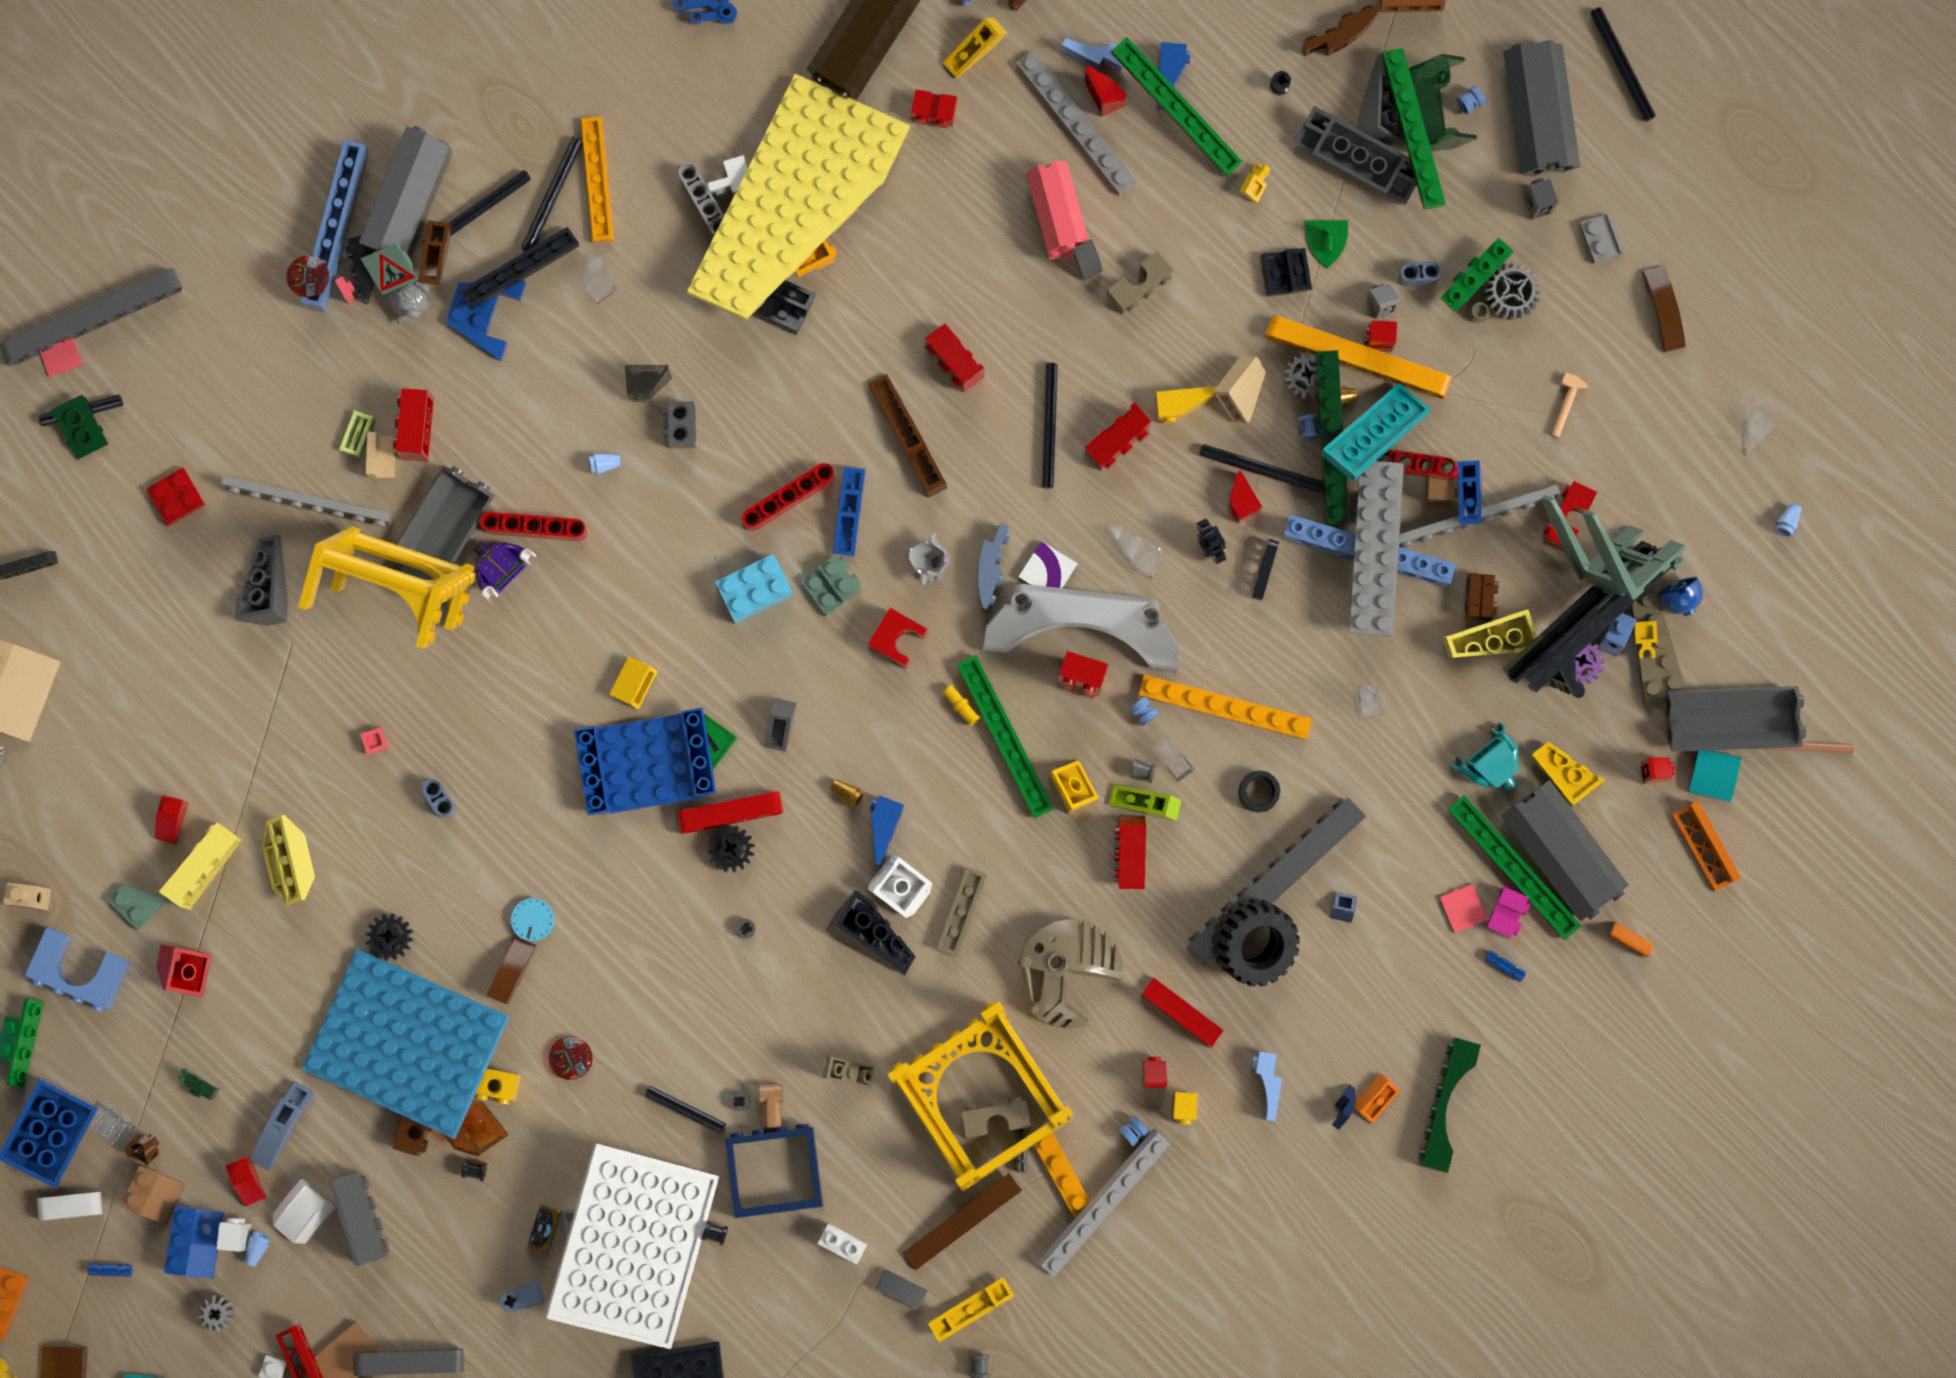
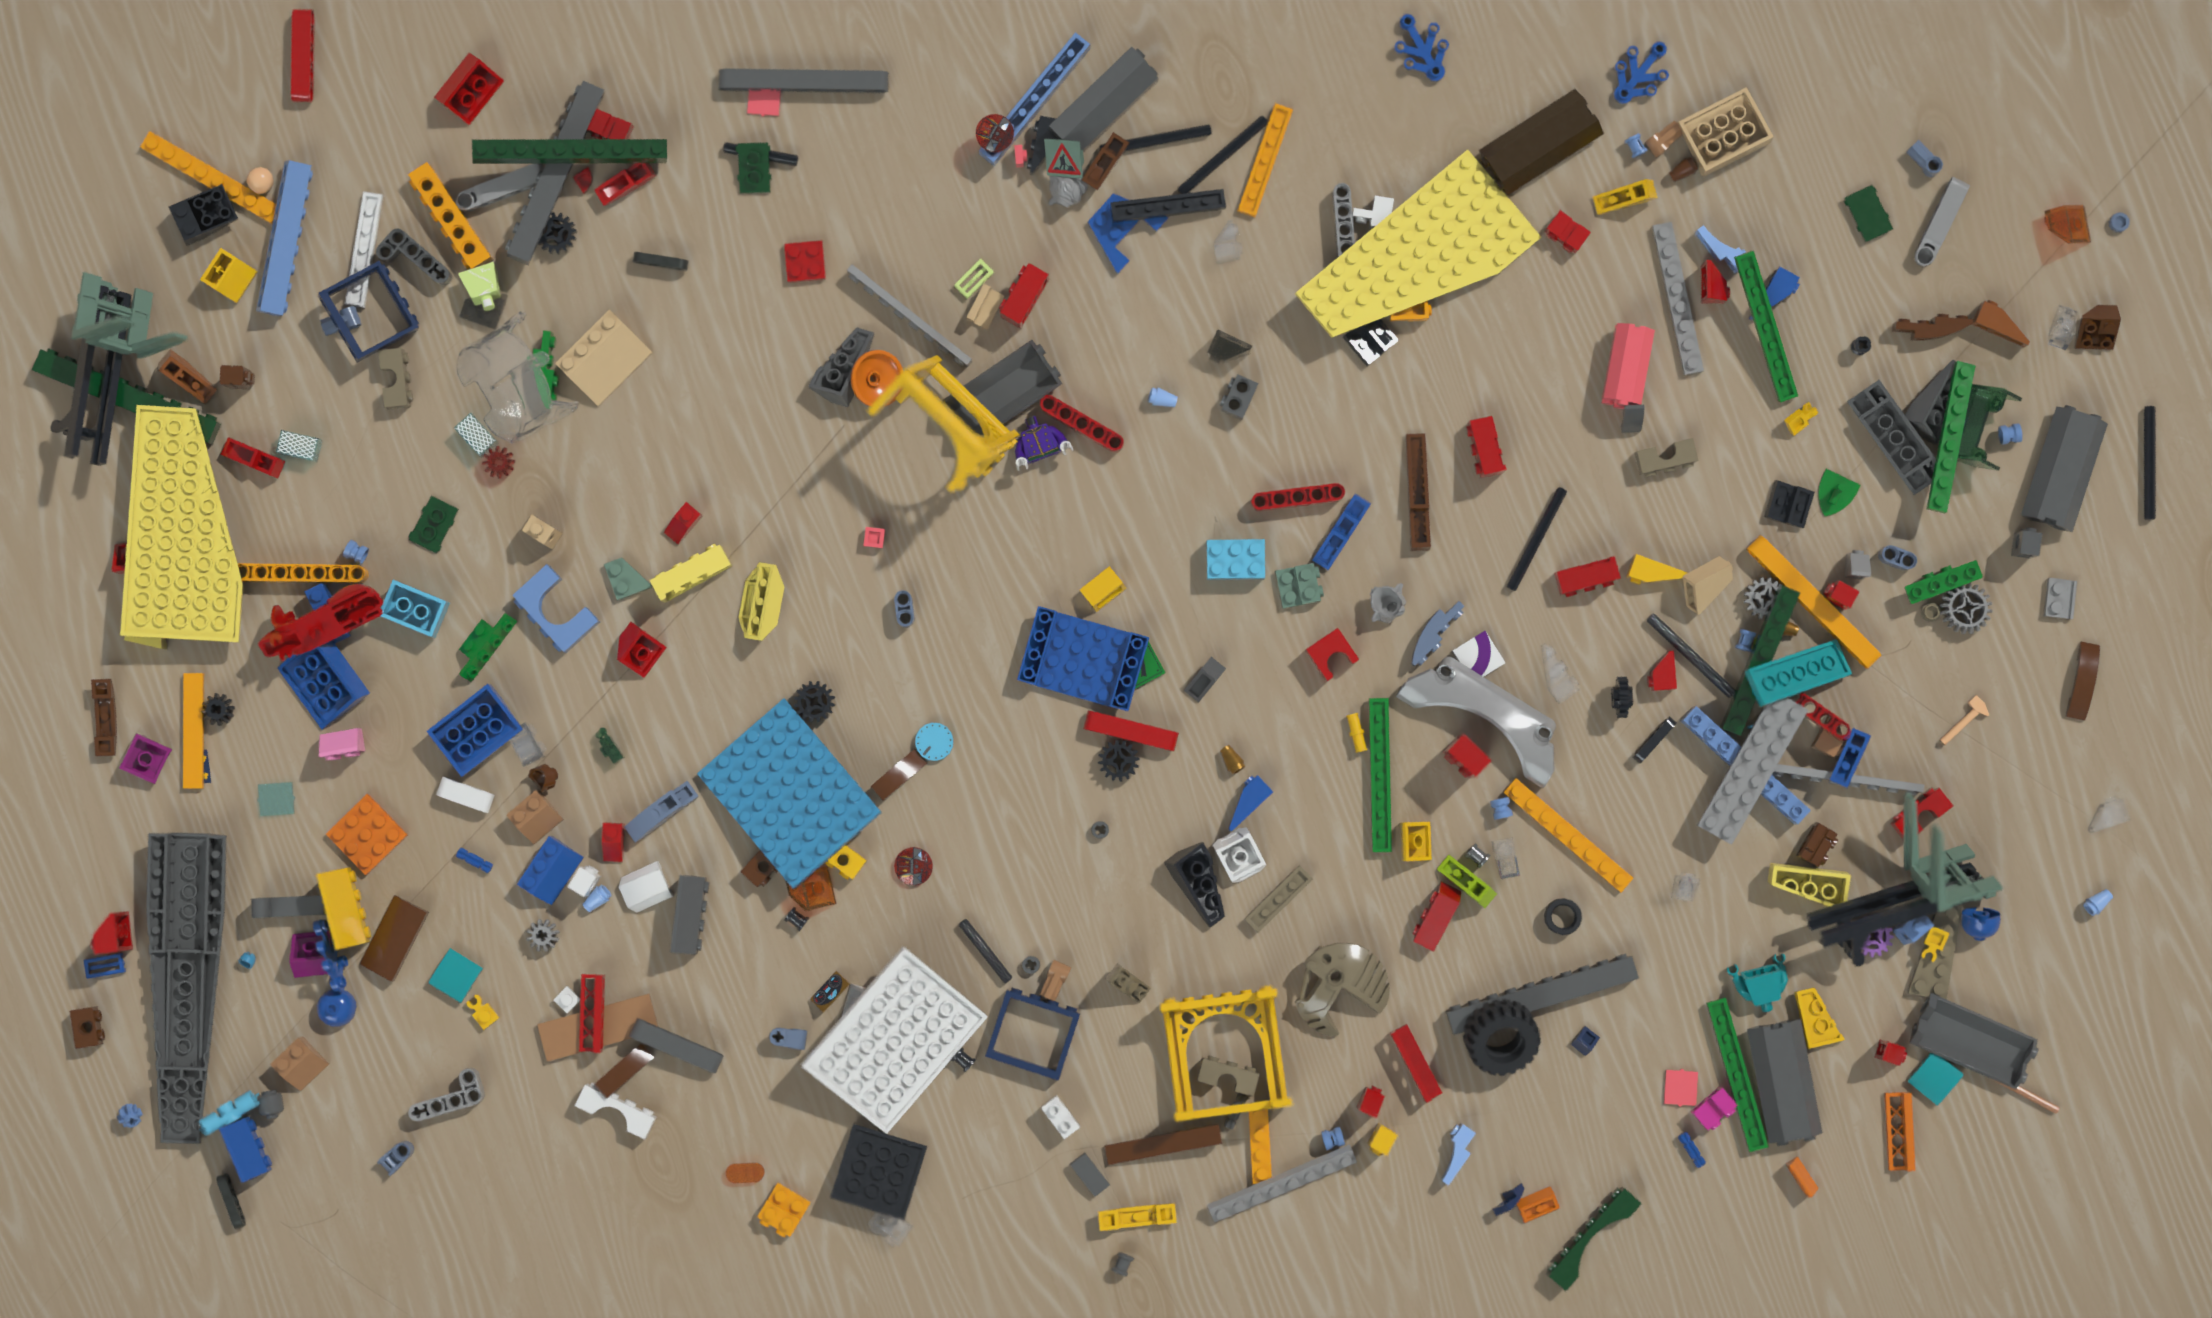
camera: 25 degrees right, 5 degrees up
(294, 565) = (883, 368): none -> orange dish

